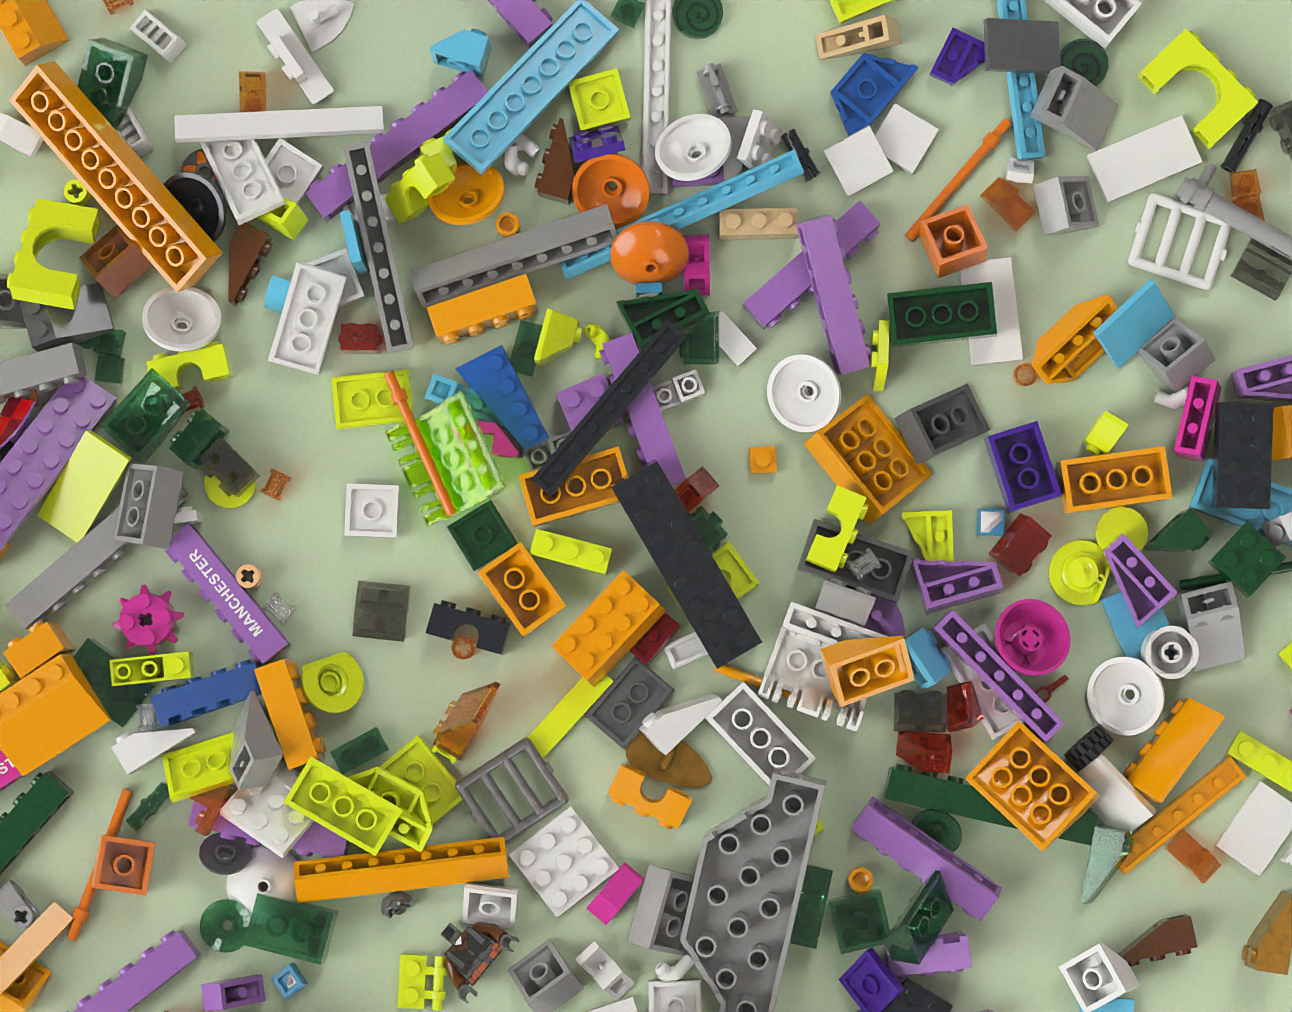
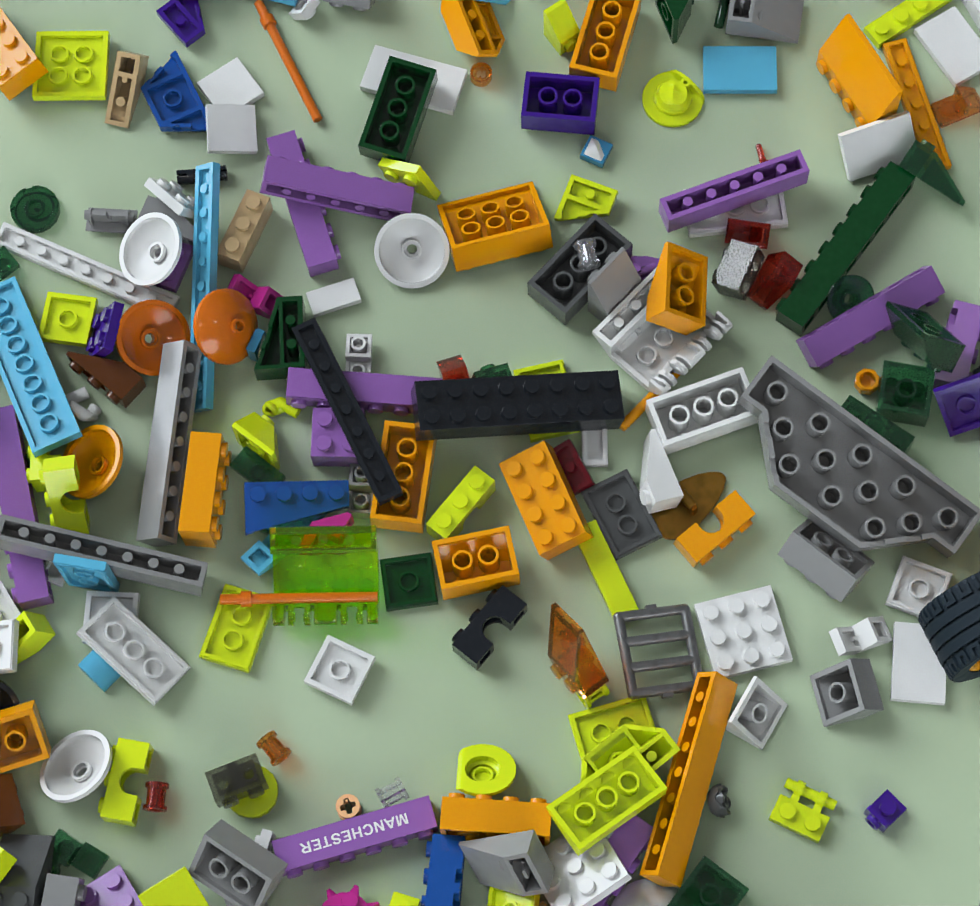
camera: 65 degrees left, 15 degrees down
(146, 416) = (150, 836): clear green slope -> none
(197, 437) = (195, 799): clear green slope -> none
(245, 254) = (44, 685): reddish brown slope -> none
(359, 750) = (558, 771): clear green plate -> none
(368, 345) = (176, 612): clear red head -> none
(381, 611) = (437, 700): clear smoke slope -> none
(459, 655) = (500, 635): clear orange bush -> none
(473, 953) = (795, 746): torso -> none
(507, 224) = (137, 442): light orange tile -> none
(615, 893) = (793, 596): dark pink slope -> none
(675, 972) = (886, 576): white arm -> none
(702, 342) = (328, 316): clear green slope -> none
(762, 460) = (454, 313): light orange plate -> none
(848, 509) = (531, 248): neon yellow arch -> none
(925, 659) = (700, 241): medium azure slope -> none
(941, 423) = (492, 155): dark grey slope -> none
(953, 241) = (338, 79): orange brick -> none
(954, 583) = (636, 198): medium lavender wedge -> none
(1007, 203) = (325, 31): clear orange slope -> none
(1020, 545) = (627, 132): clear red brick -> none
(1032, 786) = (843, 198): light orange slope -> none
(1039, 629) = (712, 150): dark pink piece -> none
(1089, 747) = (828, 145): black tyre -> none
(1110, 698) = (798, 118): white dish -> none
(1120, 521) = (652, 53): neon yellow tile -> none
(1137, 579) = (699, 49): medium lavender wedge -> none
(1177, 639) = (773, 49): white brick -> none

